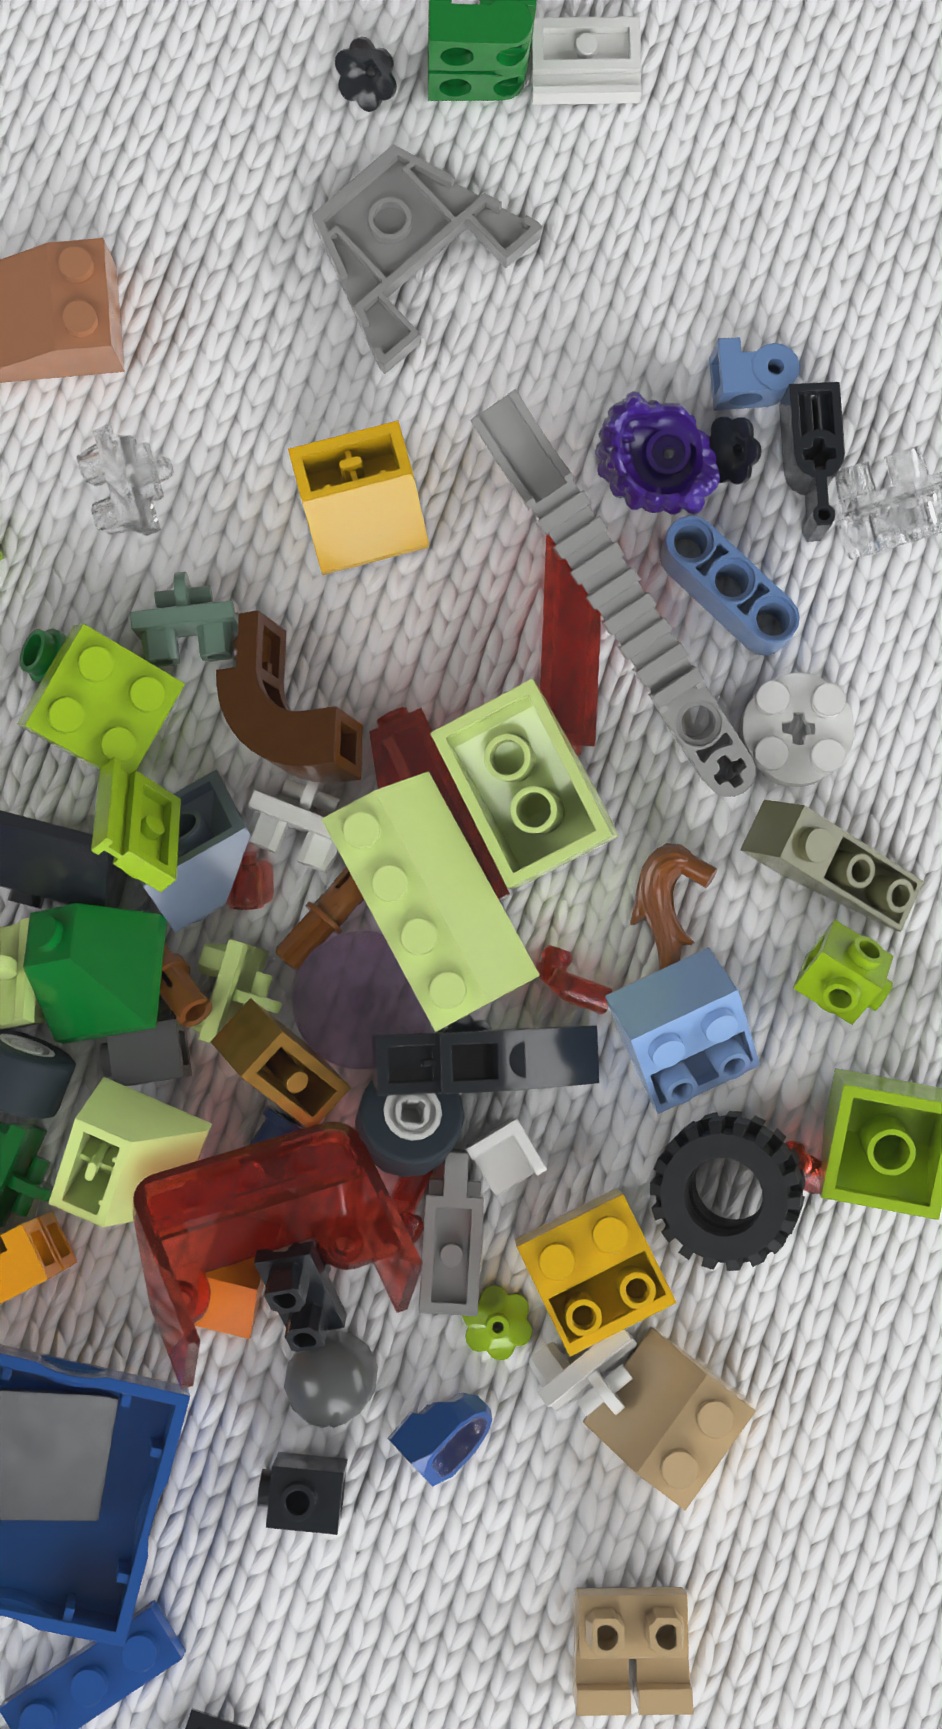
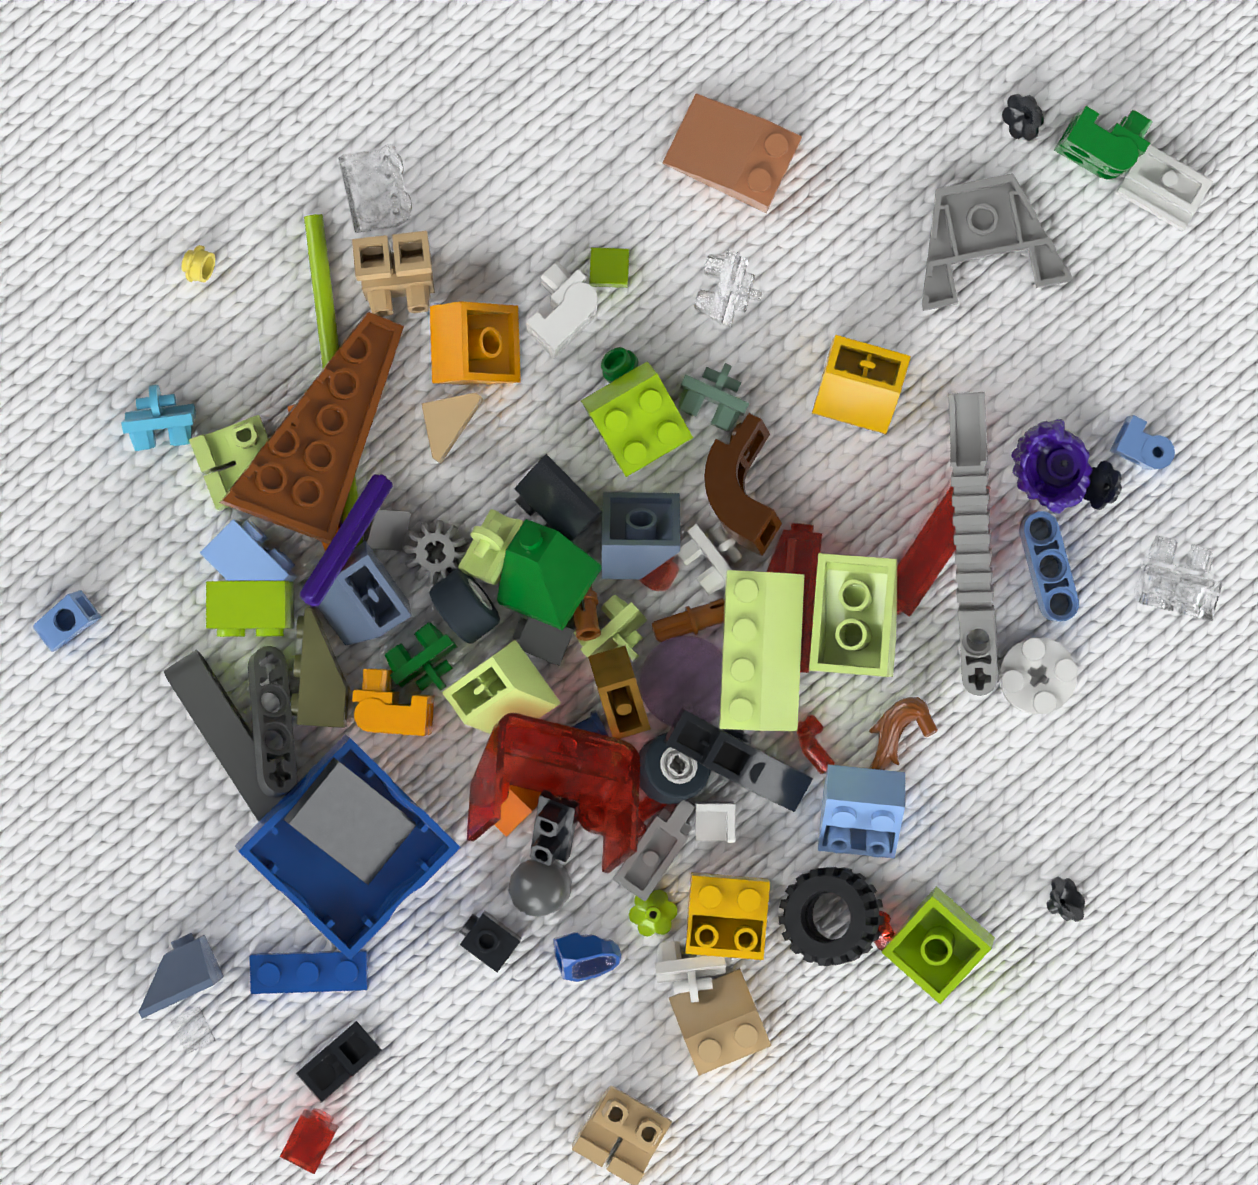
camera: 30 degrees right, 5 degrees up
(137, 825) = (619, 508): lime plate -> none
(813, 430) = (1159, 499): black piece -> none
(831, 862) = (1008, 767): olive slope -> none
(845, 973) = (975, 835): lime brick -> none

